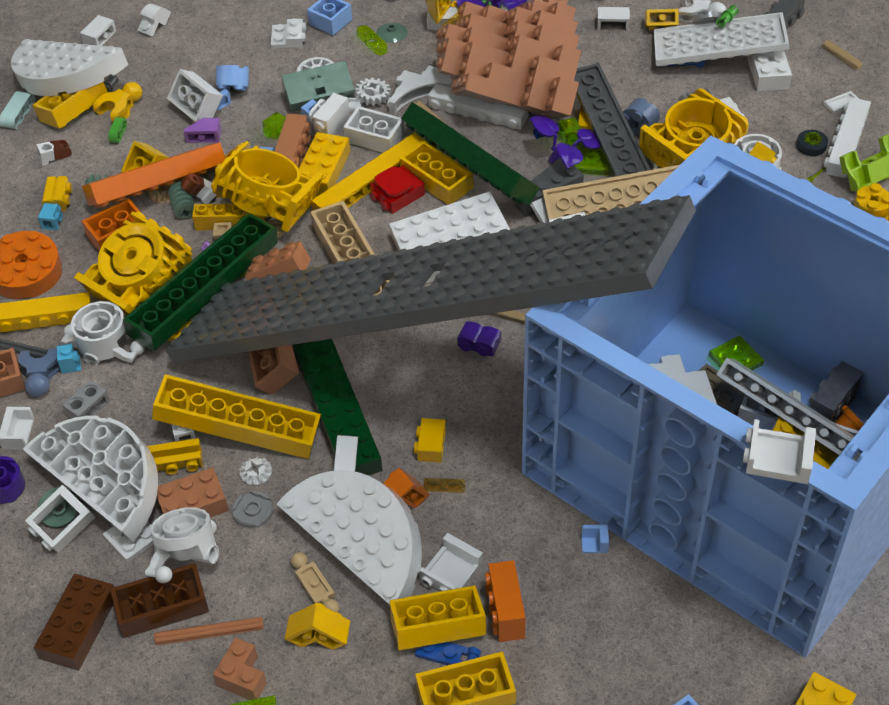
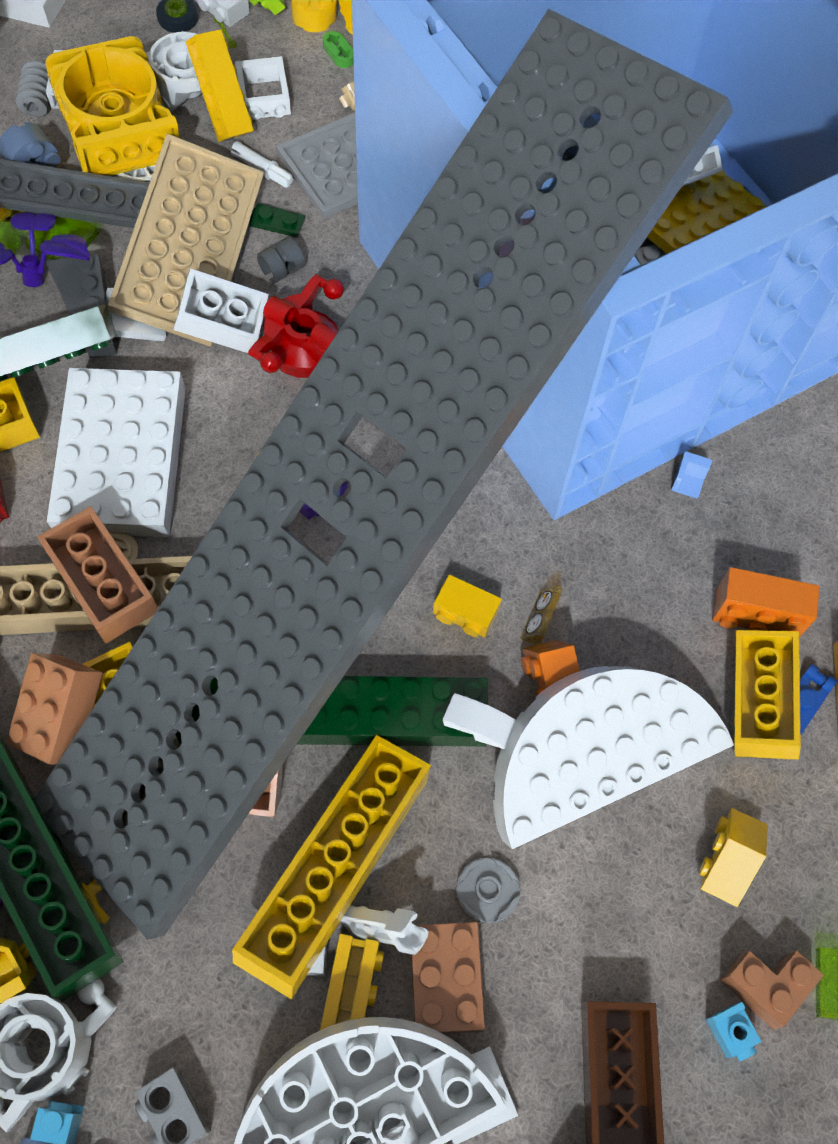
camera: 75 degrees left, 15 degrees up
(183, 536) = (515, 995): white piece -> none
(206, 454) = (386, 927): none -> white plate
(206, 665) = (722, 1026): none -> medium azure brick
(208, 631) = (681, 1018): nougat axle -> none
(251, 477) = (408, 876): white gear -> none
(314, 582) = (650, 838): tan plate -> none
(363, 239) = (98, 574): none -> nougat brick
(452, 565) = (679, 652): white panel -> none

